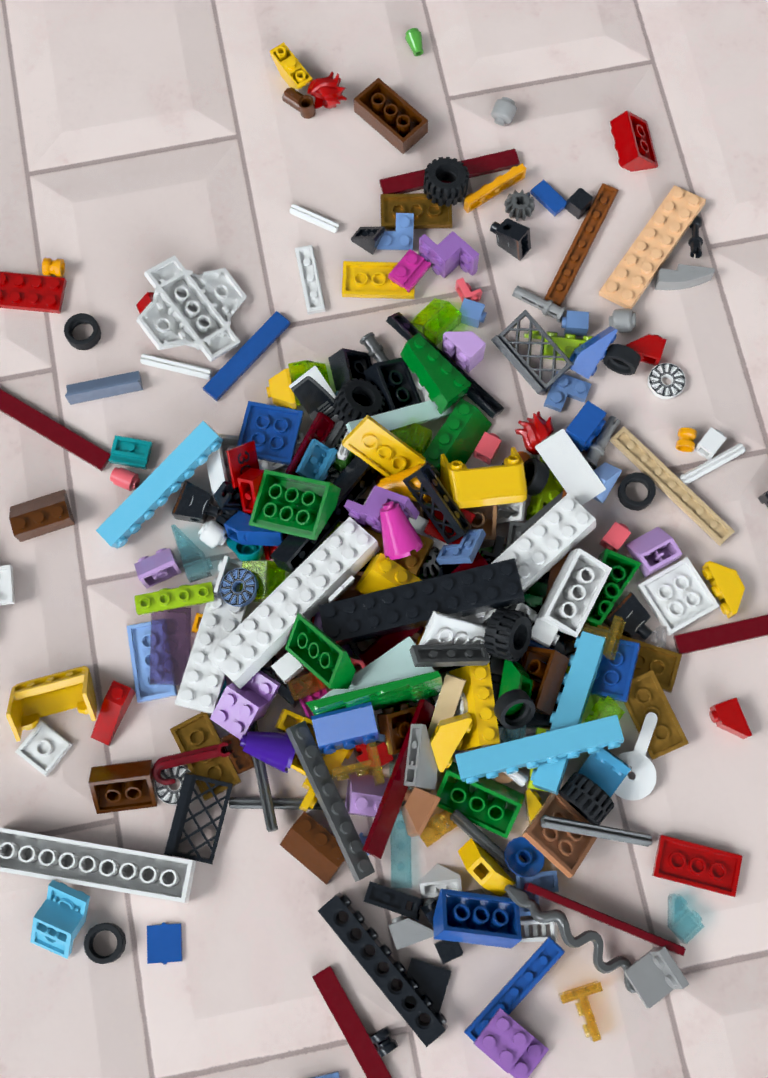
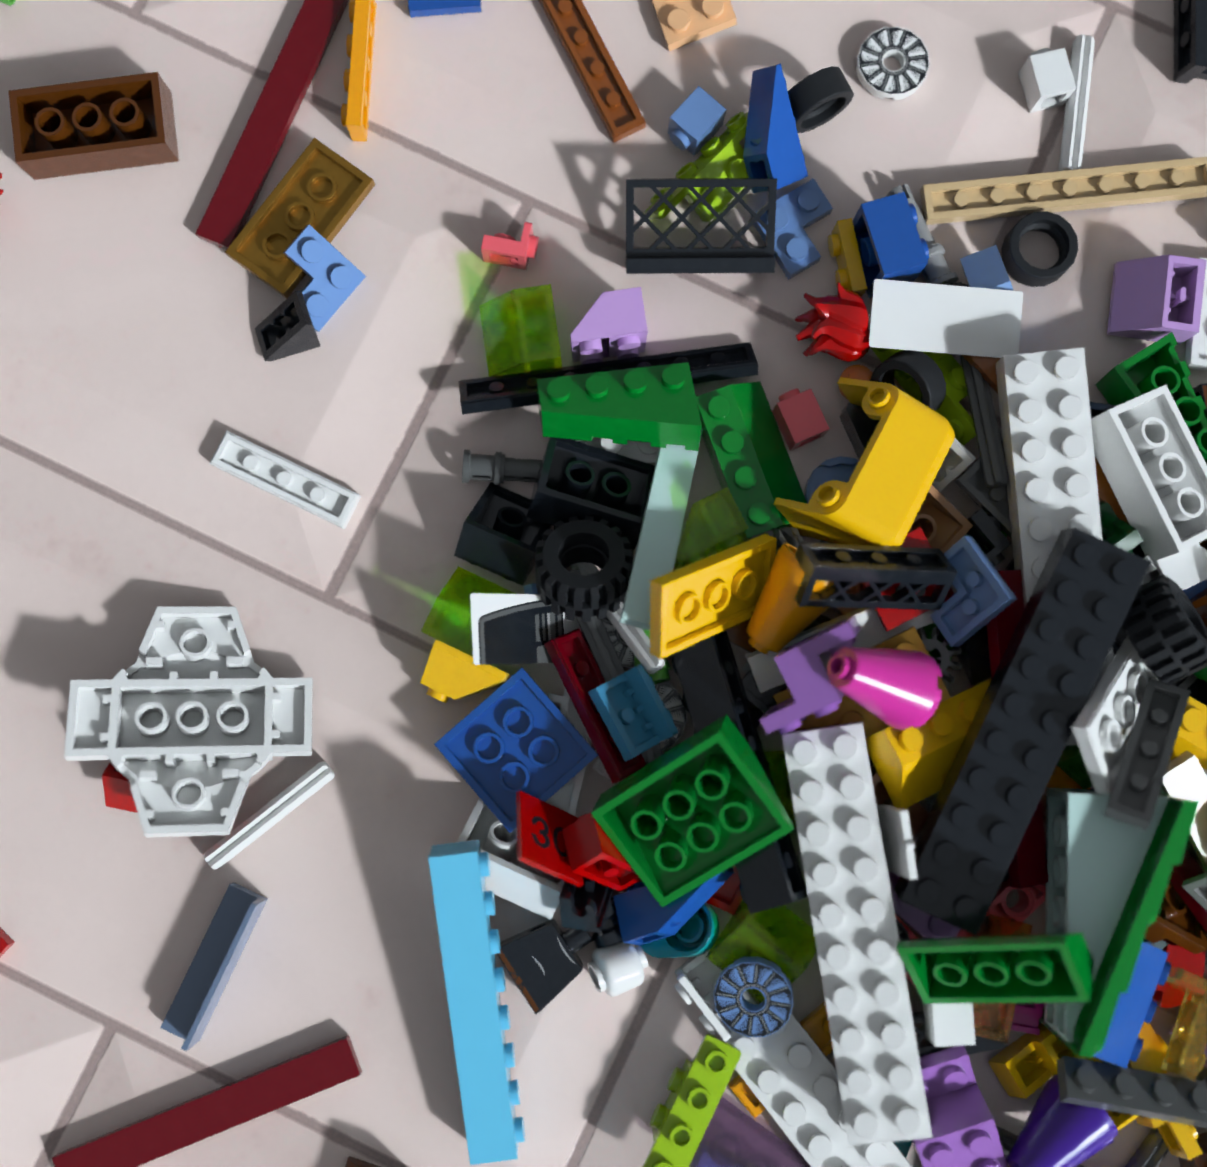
camera: 60 degrees left, 10 degrees up
(79, 319) = (51, 931): black tyre -> none
(125, 478) = (409, 1045): coral brick -> none
(130, 452) = (368, 1002): teal plate -> none
(157, 567) = (609, 1104): lavender slope -> none
(193, 559) = (632, 1029): clear light blue slope -> none
(246, 356) = (342, 684): blue tile -> none
(314, 218) = (179, 391): white axle -> none
(371, 281) = (376, 370): yellow plate -> none
(409, 270) = (402, 309): dark pink plate -> none
(447, 170) = (285, 104): black tyre -> none
(449, 254) = (425, 213): medium lavender bracket -> none
(472, 313) = (553, 265): medium blue brick -> none
(512, 237) = (472, 103): black torso -> none
(519, 205) = (419, 36): dark grey gear -> none
(545, 306) = (632, 144): light grey pin -> none
(570, 415) = (844, 246): none -> yellow plate
(615, 537) = (1094, 333): coral brick -> none
(623, 320) = (747, 47): light grey head -> none
(649, 348) = (825, 44): red slope -> none
(686, 439) = (1012, 109): light orange wheel -> none

